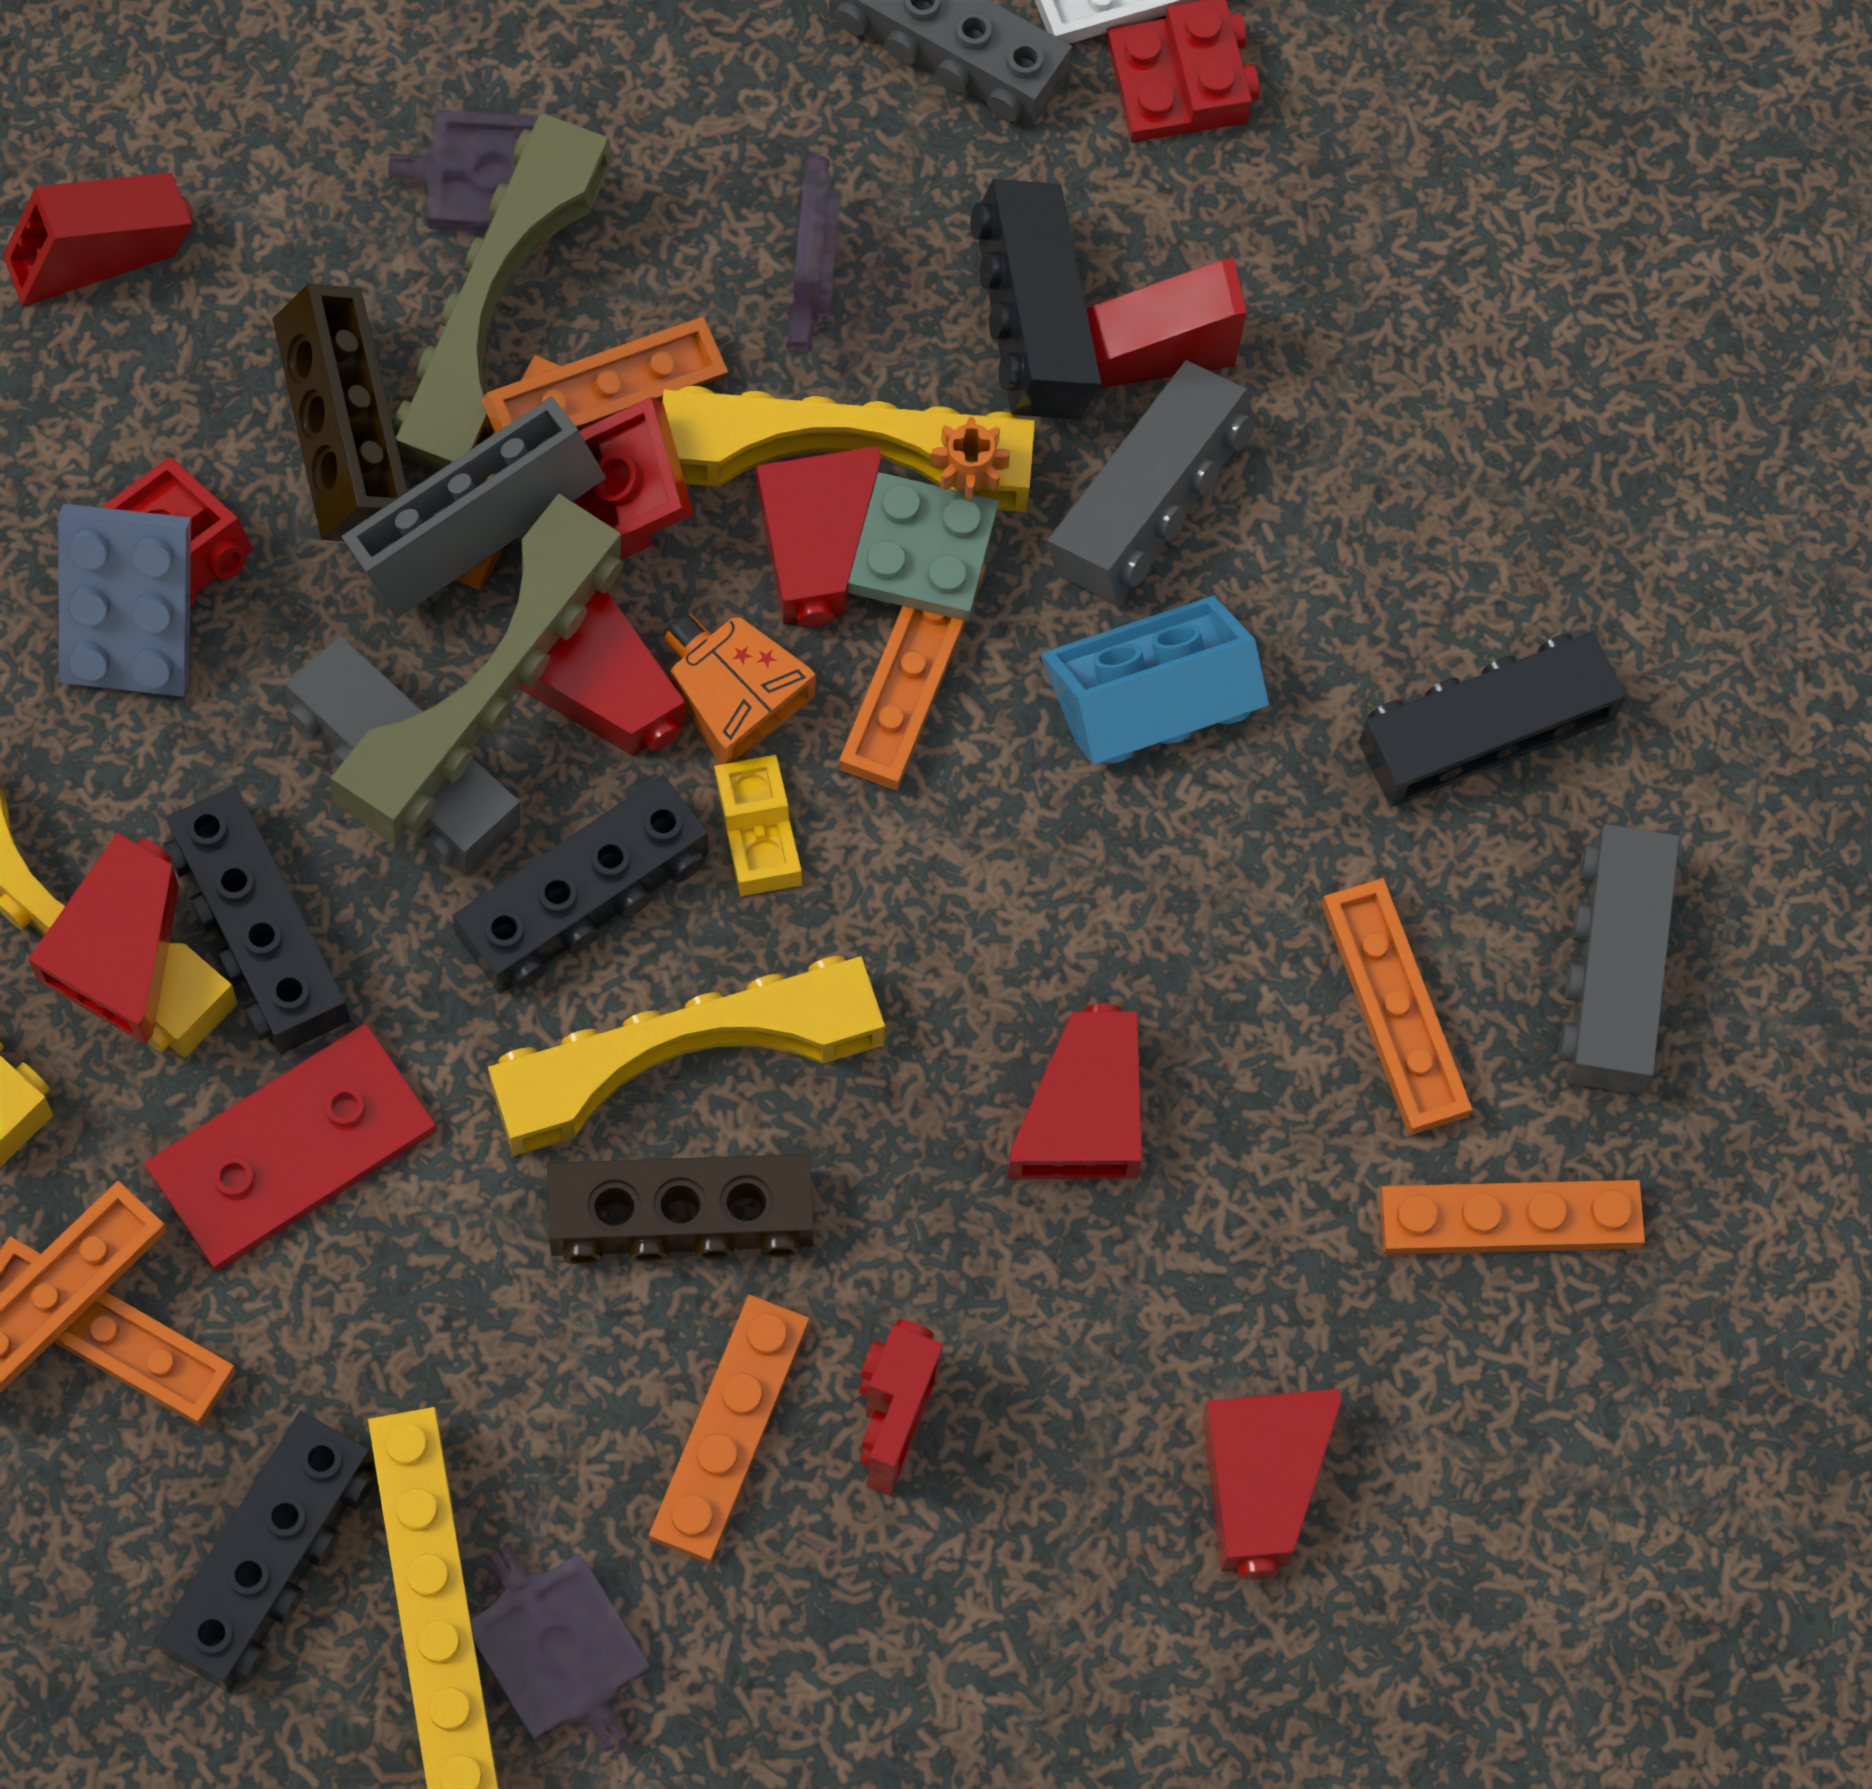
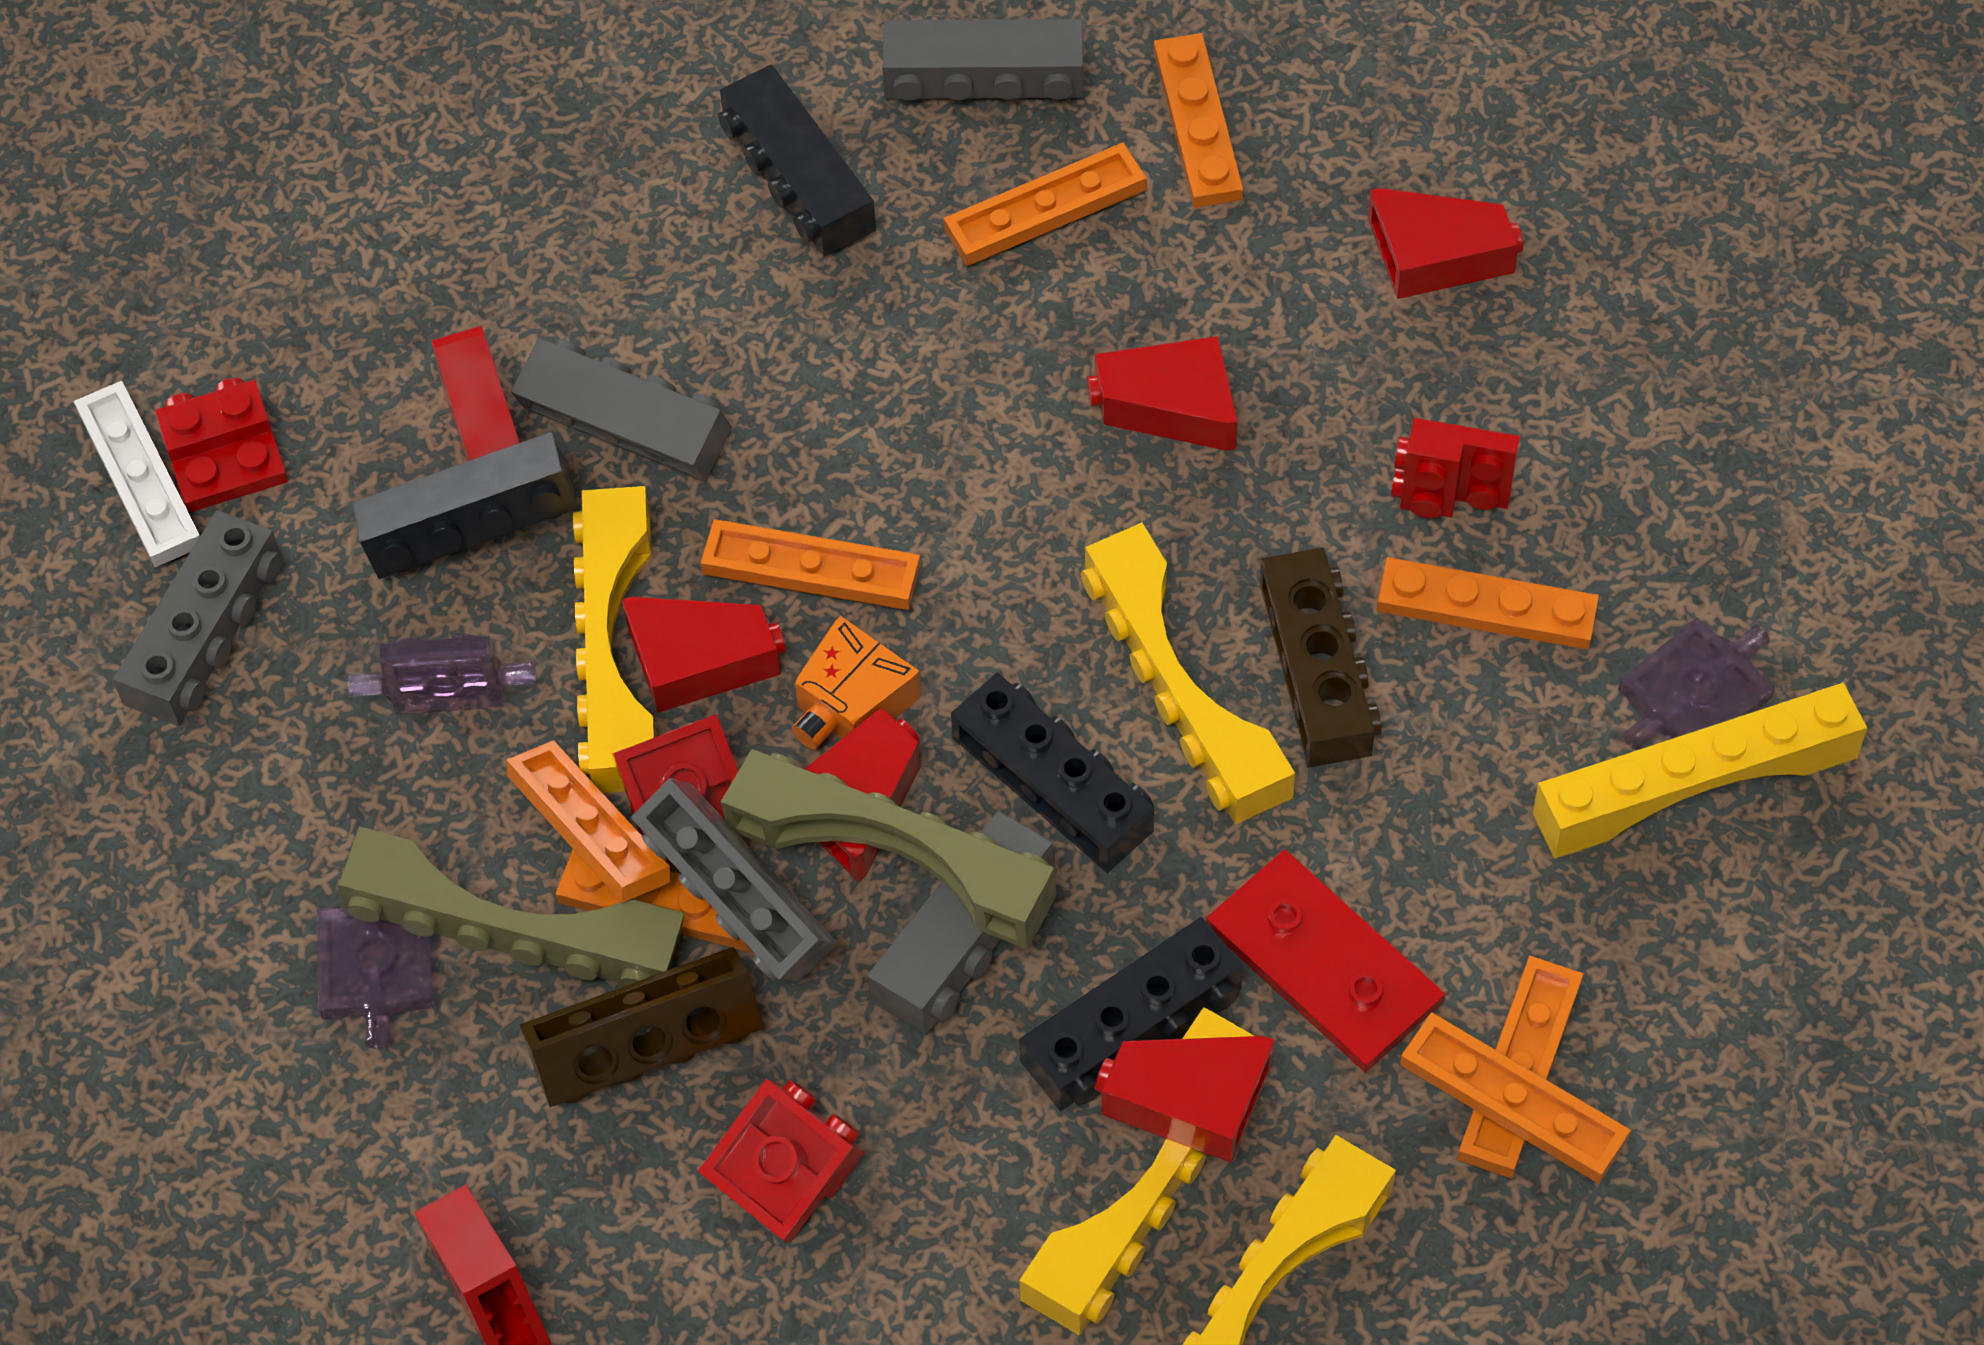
camera: 90 degrees left, 10 degrees down
(124, 599) = (863, 1153): sand blue plate -> none
(266, 1552) = (1677, 904): black brick -> none
(758, 825) = (965, 663): yellow slope -> none
(923, 546) = (707, 555): sand green plate -> none
(975, 441) = (633, 516): orange gear -> none
(1156, 680) = (794, 390): dark azure slope -> none

